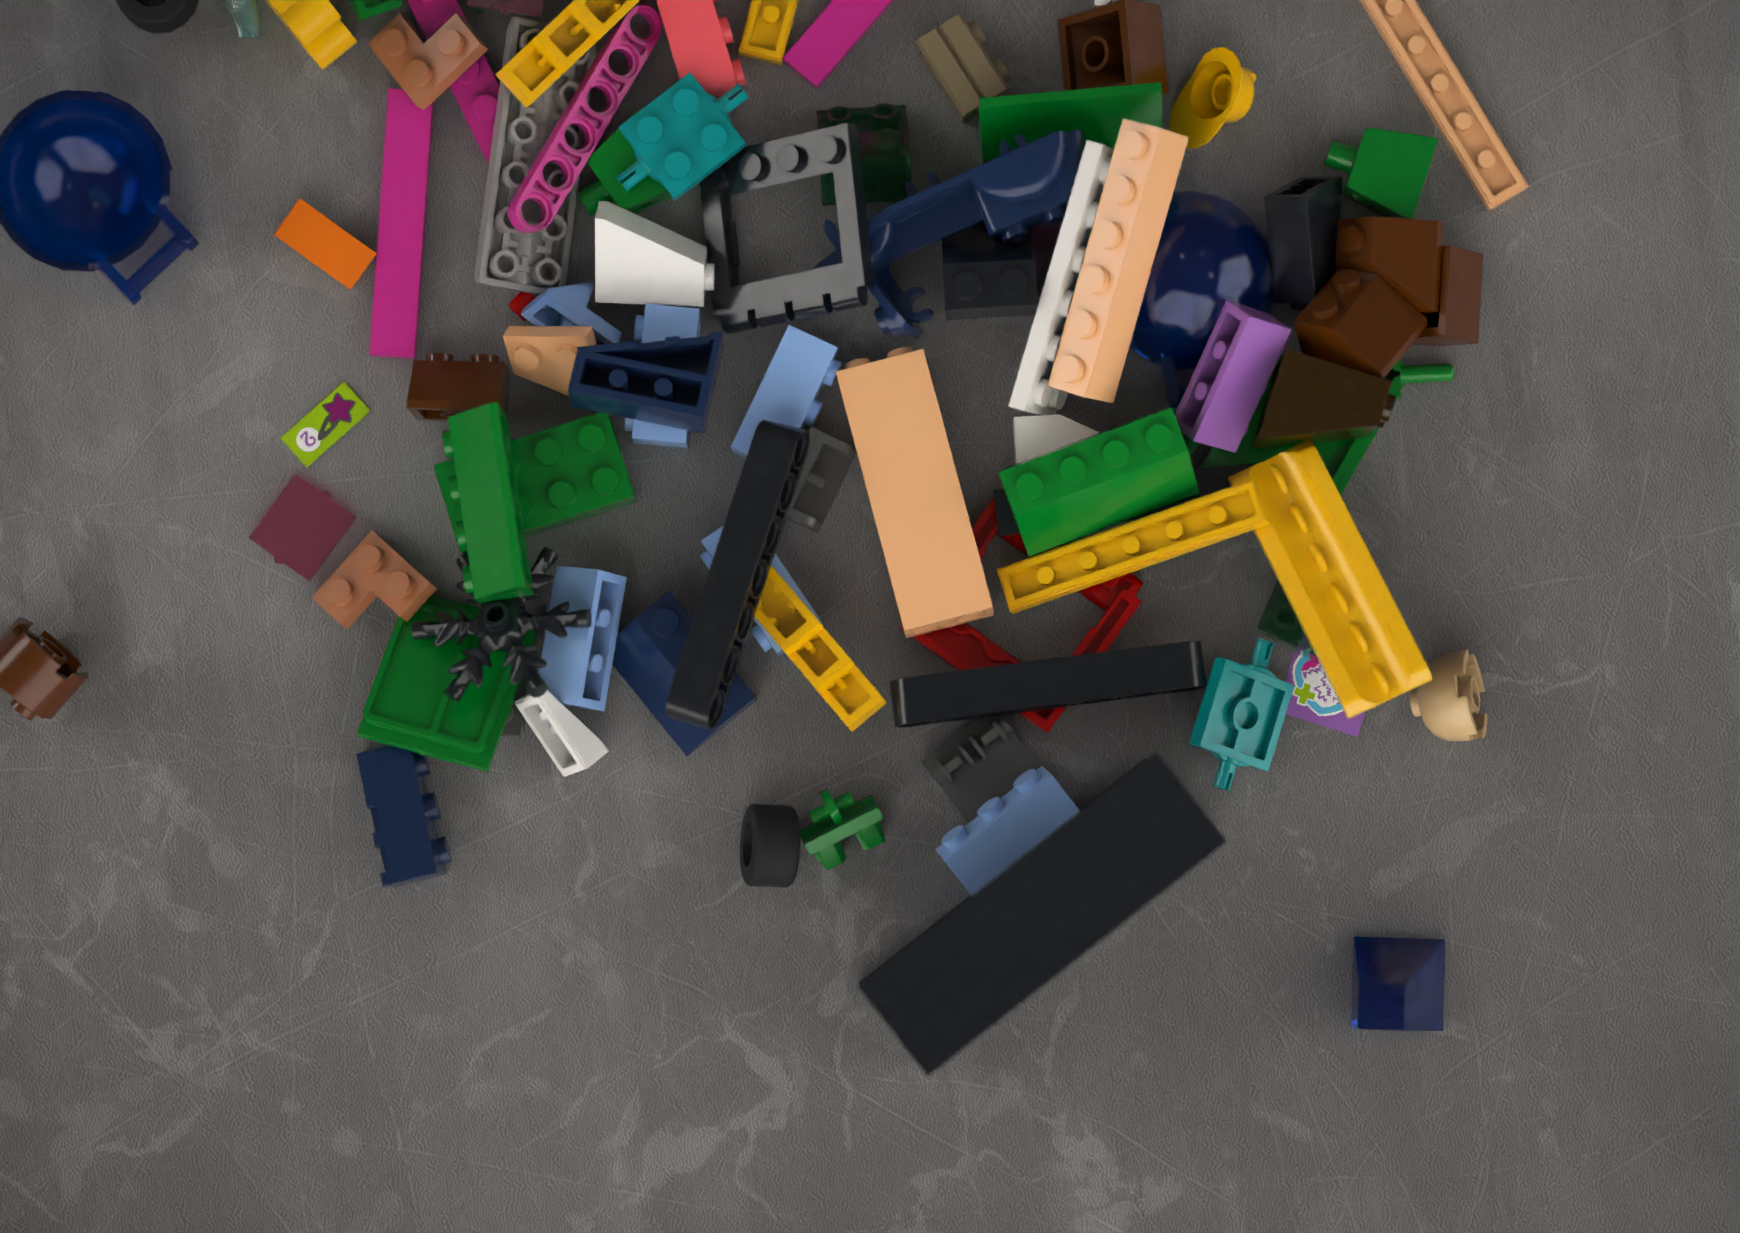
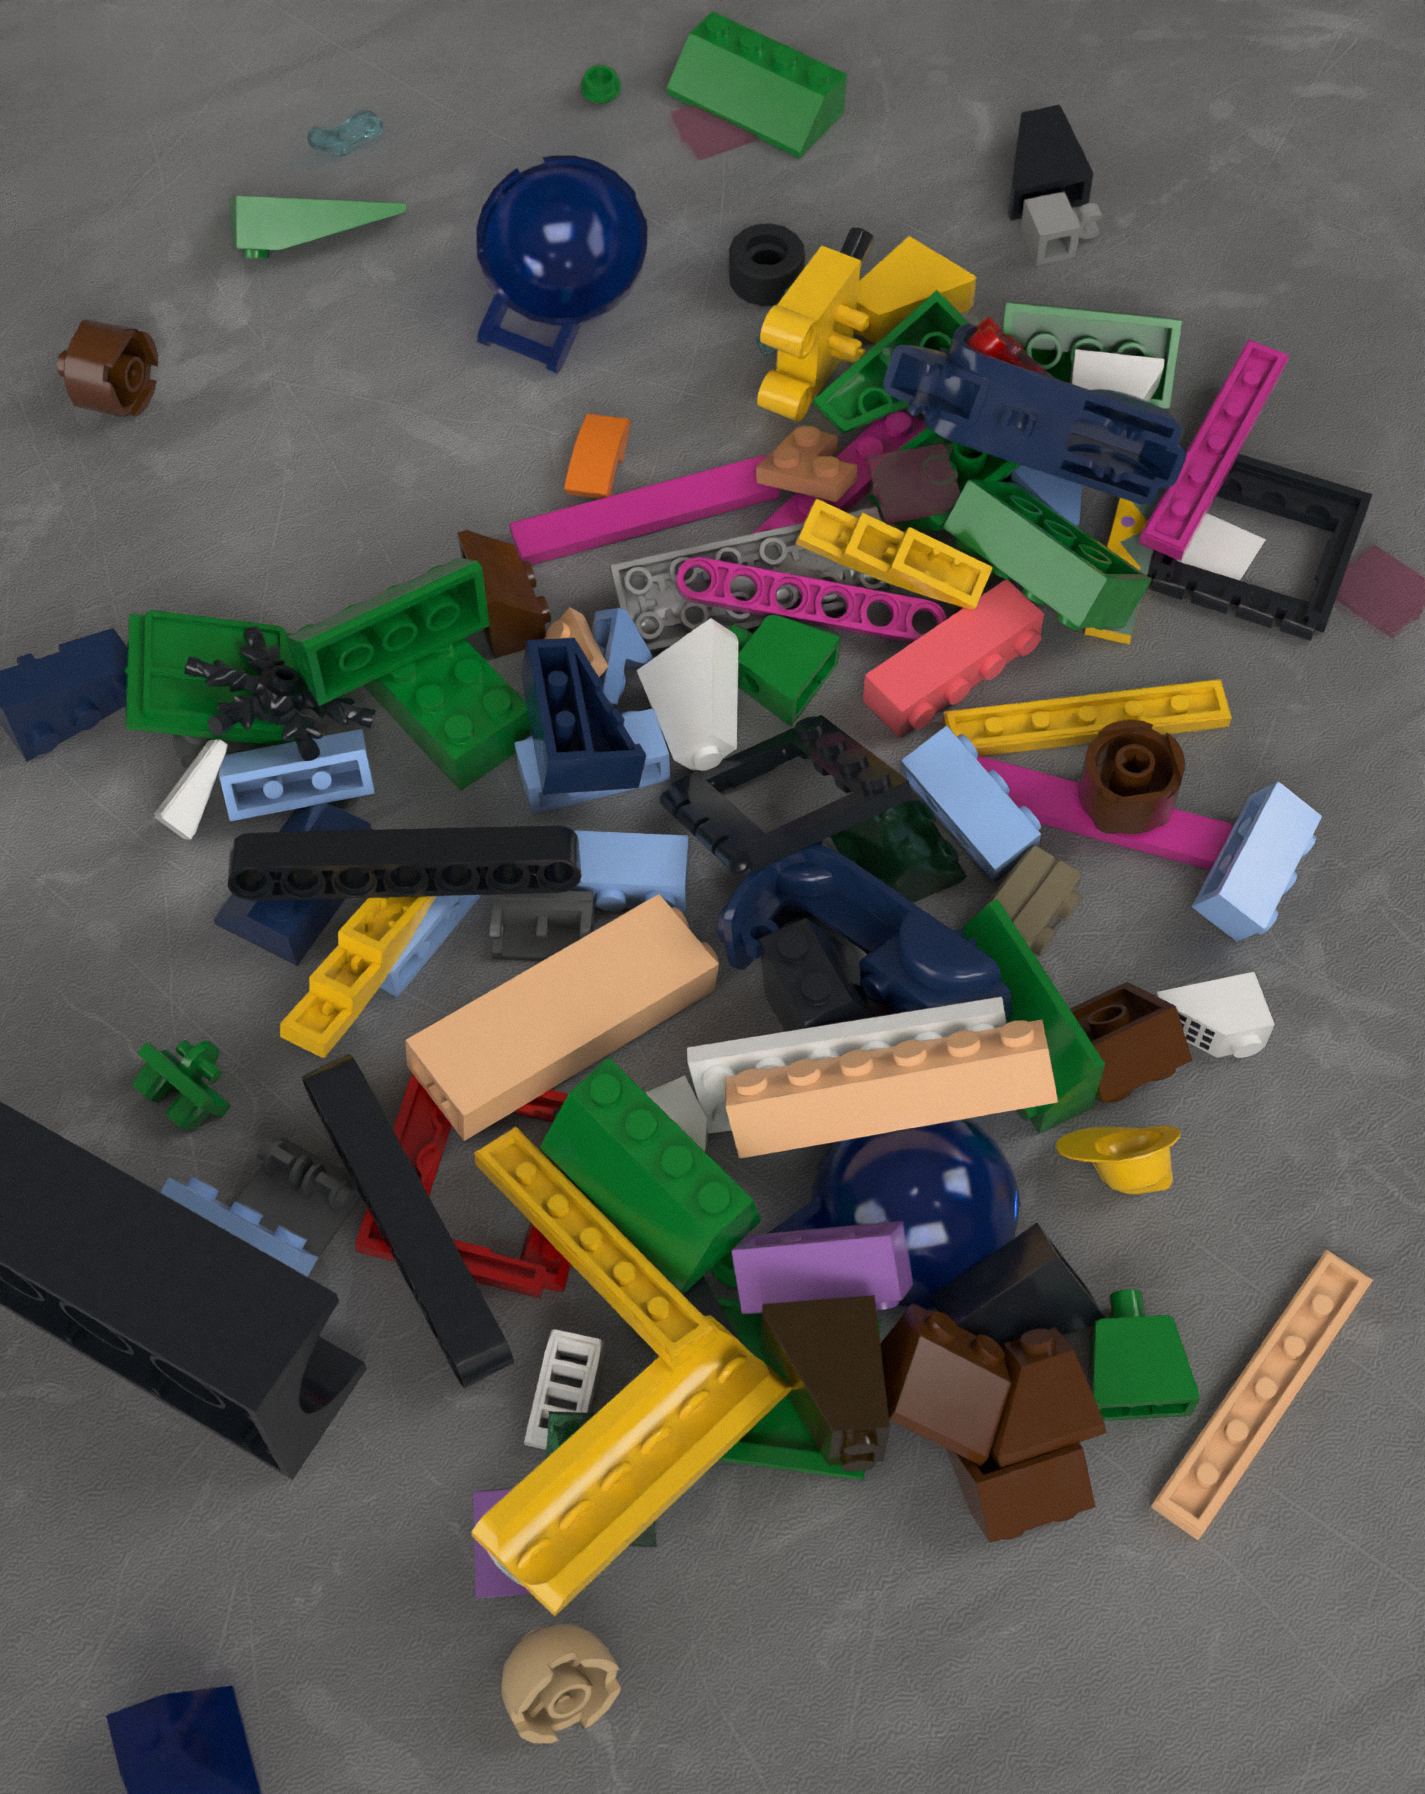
camera: 65 degrees right, 25 degrees down
(302, 527) = (325, 535): clear pink piece -> none
(325, 424) = (430, 519): lime sticker -> none
(372, 572) = (293, 595): nougat plate -> none
(682, 136) = (830, 675): teal plate -> none
(770, 845) = (137, 1014): black tyre -> none
(851, 70) = (971, 802): none -> light blue brick
(1193, 606) = (572, 1346): none -> white slope
(1242, 714) = (447, 1441): teal plate -> none
(1419, 374) = (920, 1484): green bar -> none

